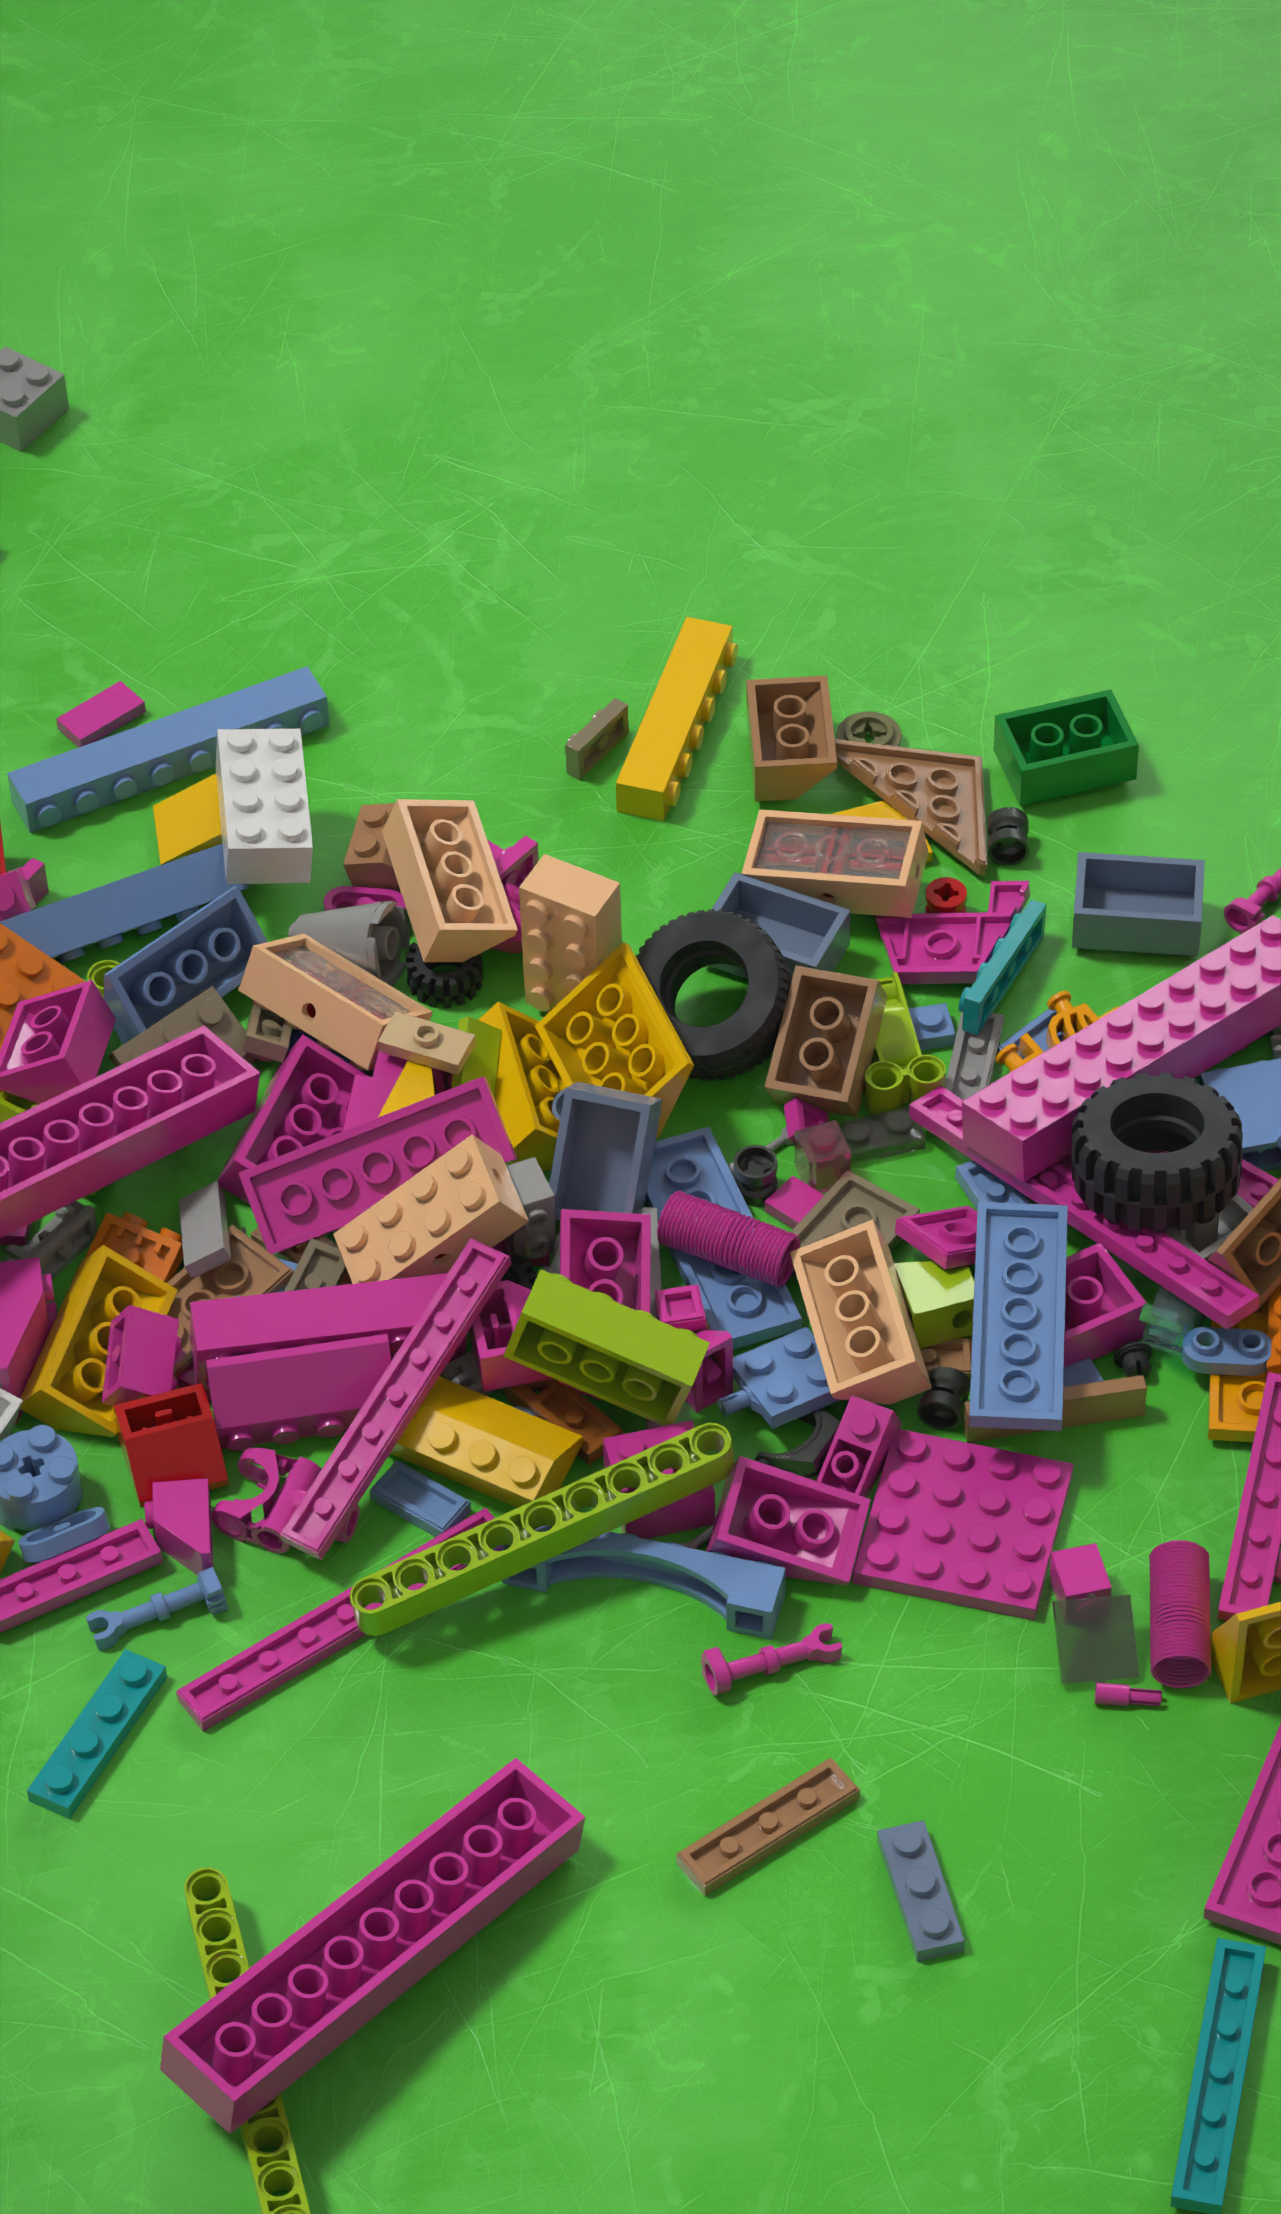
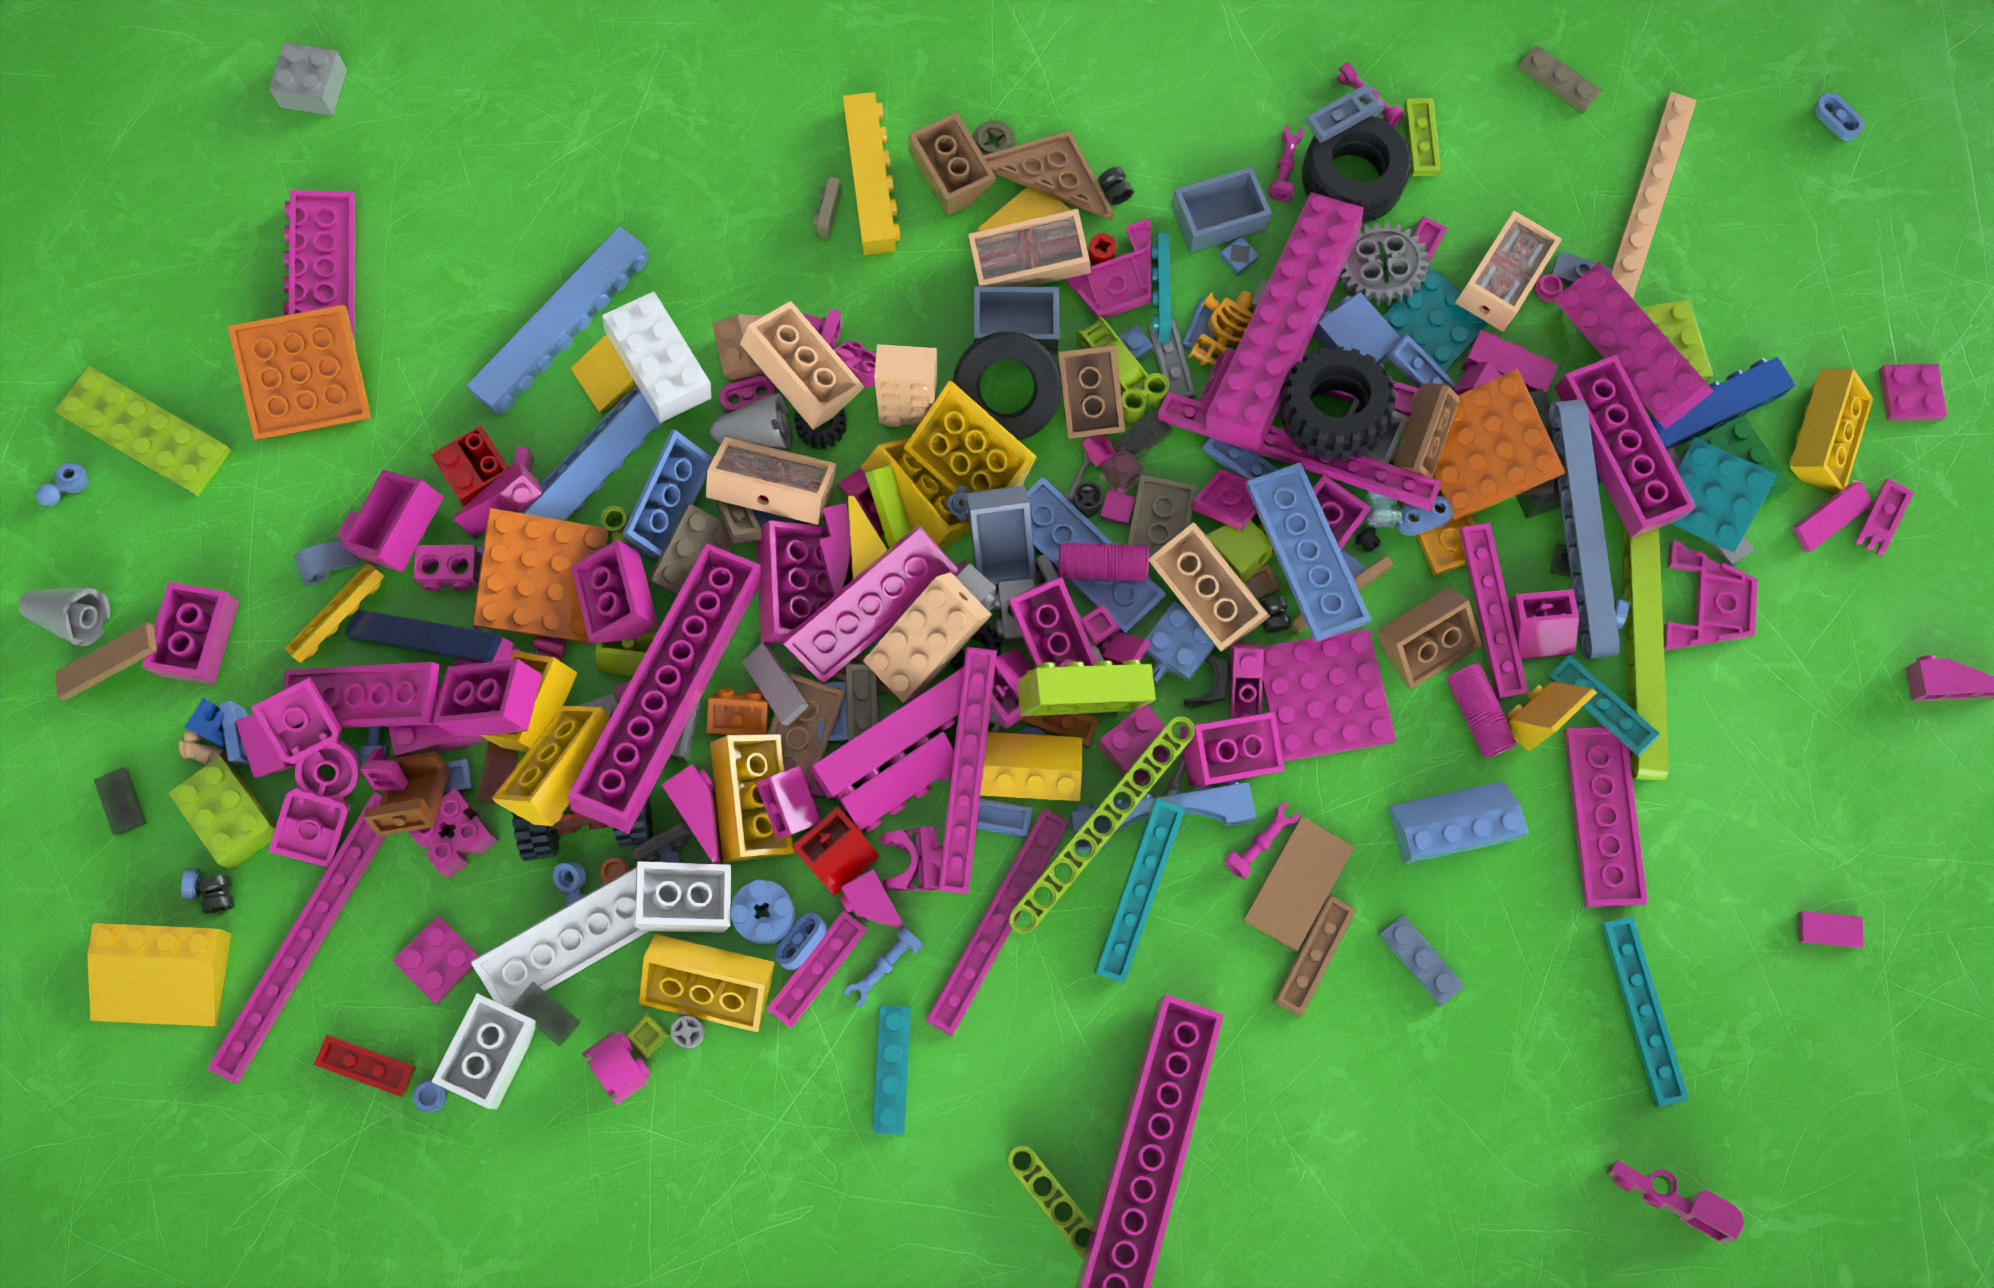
camera: 30 degrees left, 25 degrees up
(101, 714) = (498, 309): dark pink tile -> none
(426, 1043) = (856, 502): tan plate -> none
(556, 1639) = (1139, 890): none -> teal plate
(794, 1730) = (1298, 884): none -> medium nougat tile
(1065, 747) = (1121, 107): green brick -> none
(1065, 1745) = (1457, 822): none -> medium blue slope
(1078, 1573) = (1415, 713): dark pink brick -> none
(1095, 1639) = (1442, 748): clear smoke piece -> none
(1124, 1695) = (1470, 775): dark pink pin -> none
(1139, 972) = (1239, 255): none -> medium blue tile
(1156, 1500) = (1430, 637): none -> medium nougat slope

